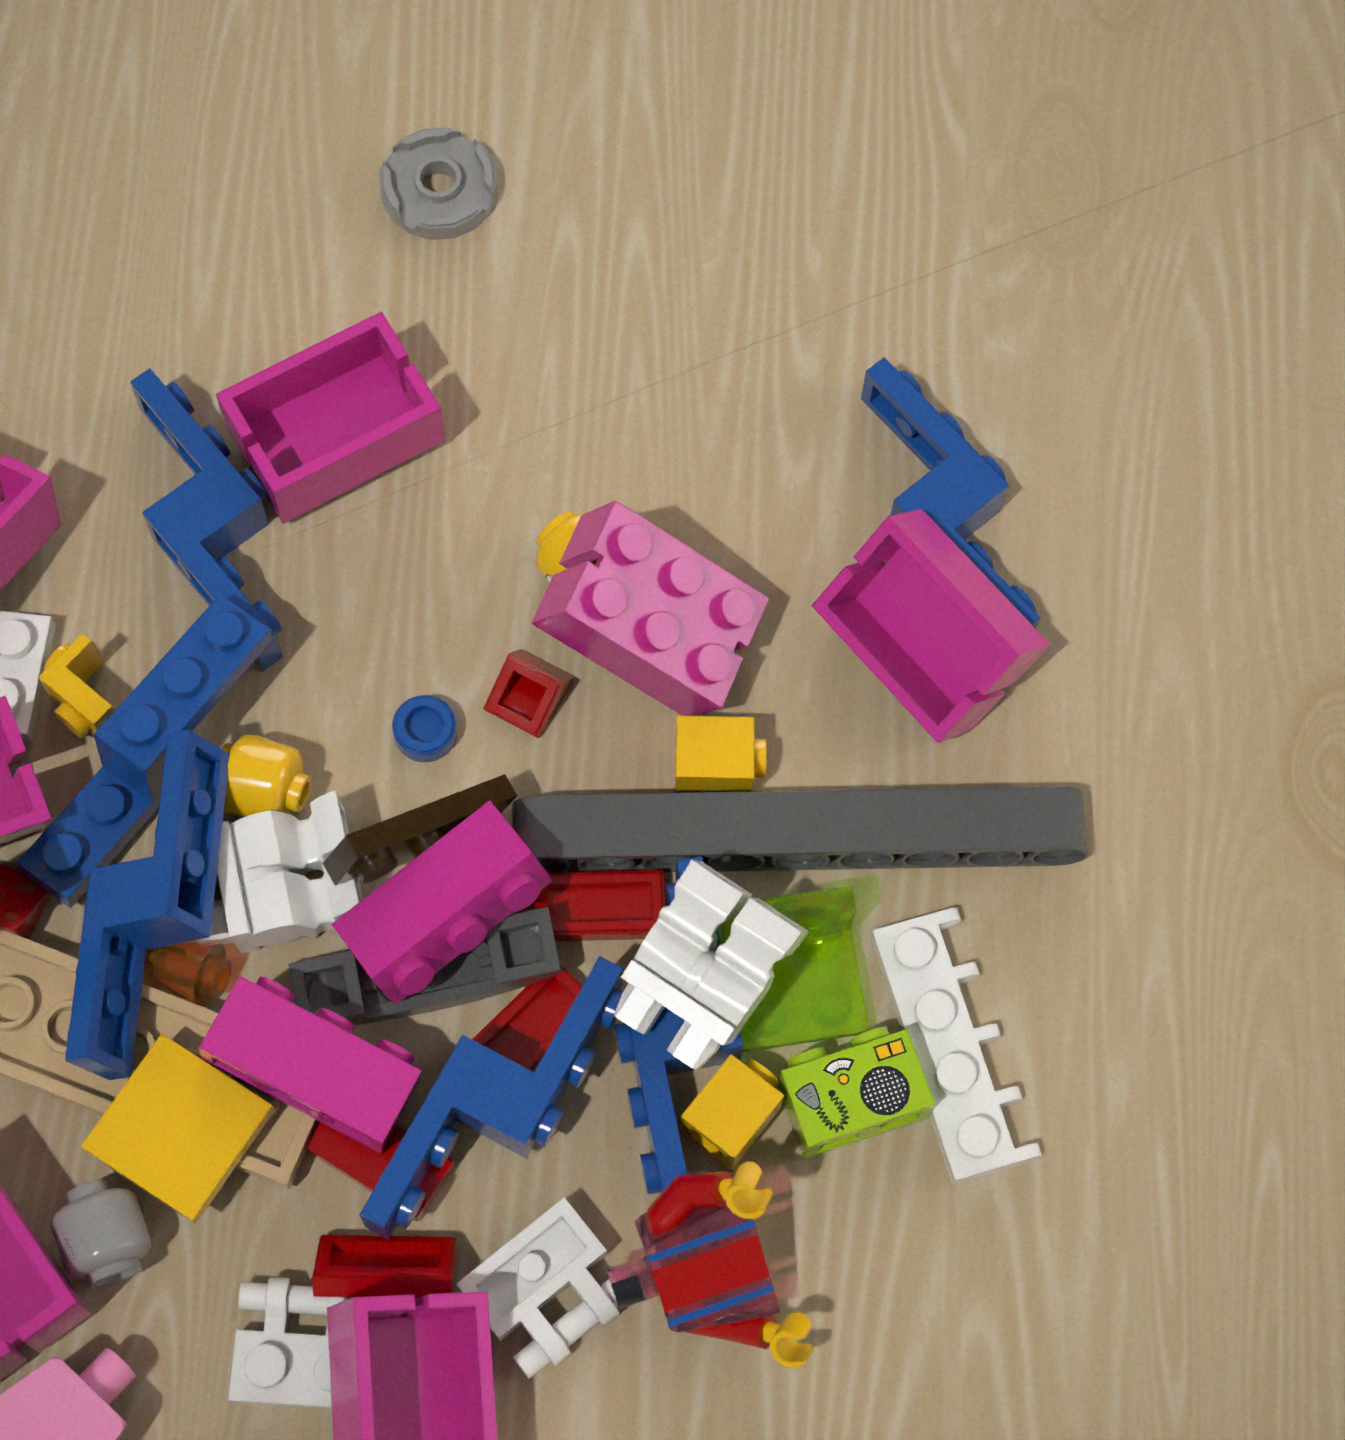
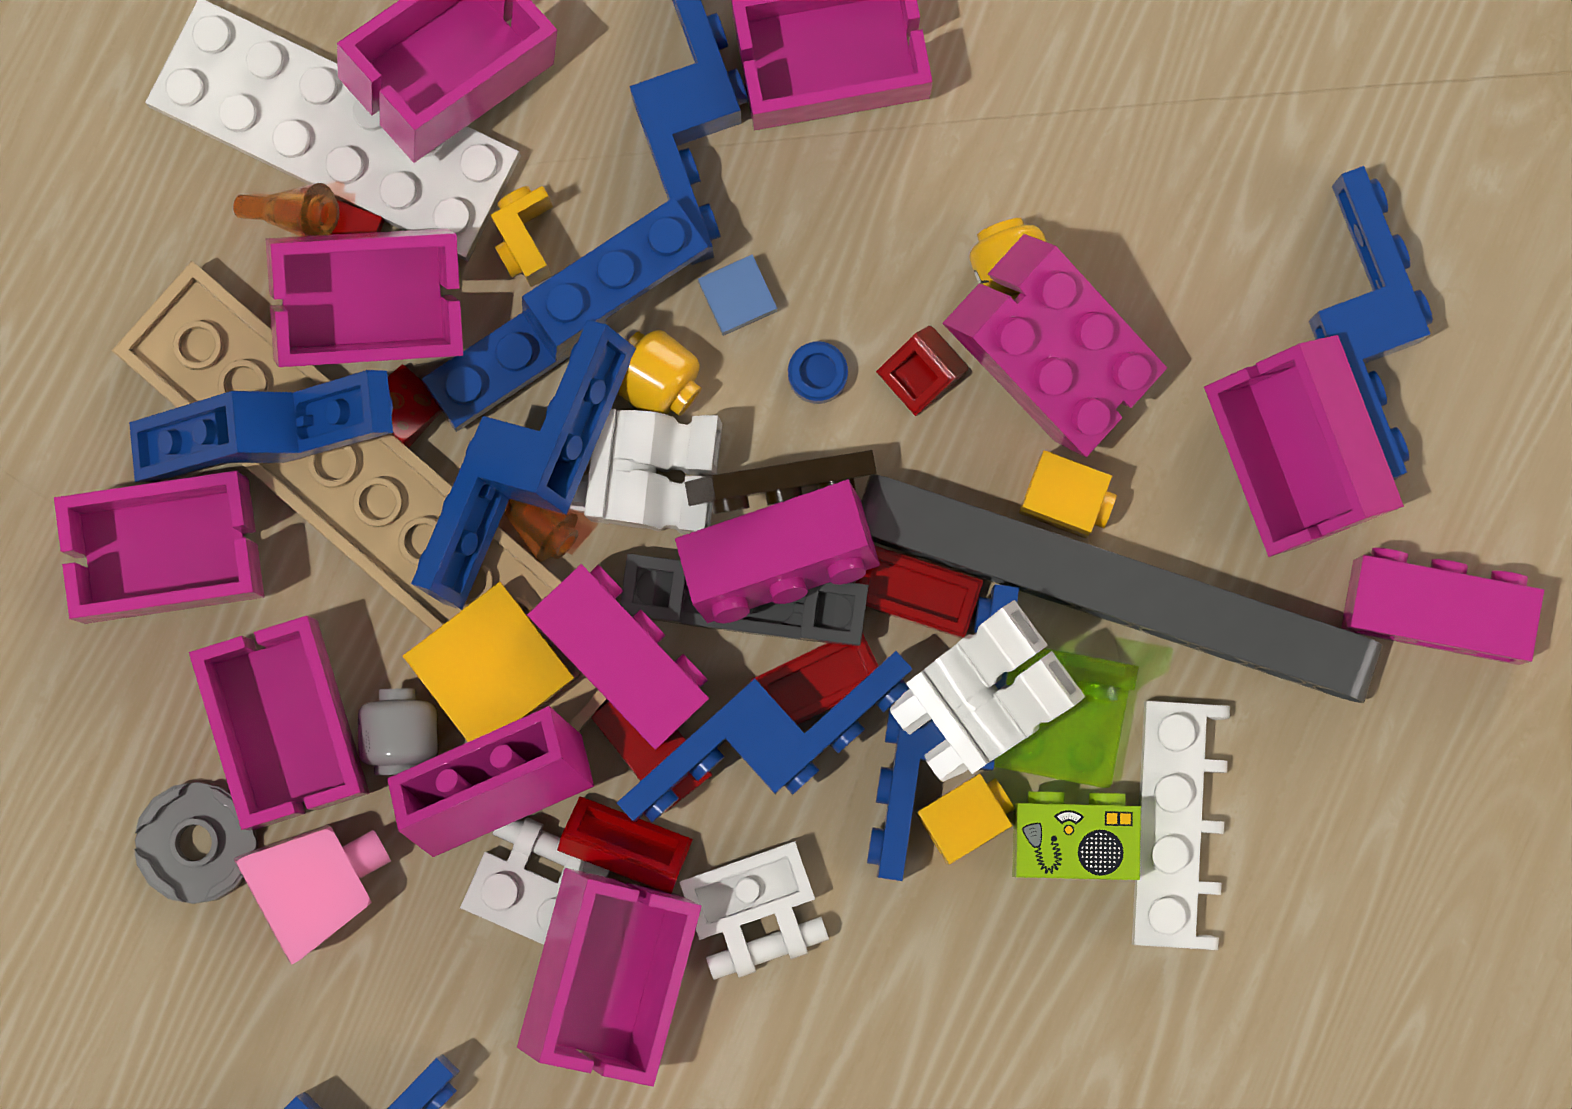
camera: 25 degrees right, 15 degrees up
(216, 1245) = (490, 782): none -> dark pink brick
(318, 681) = (737, 295): none -> medium blue tile
(711, 1265) = (896, 948): torso -> none
(1128, 737) = (1443, 607): none -> dark pink brick

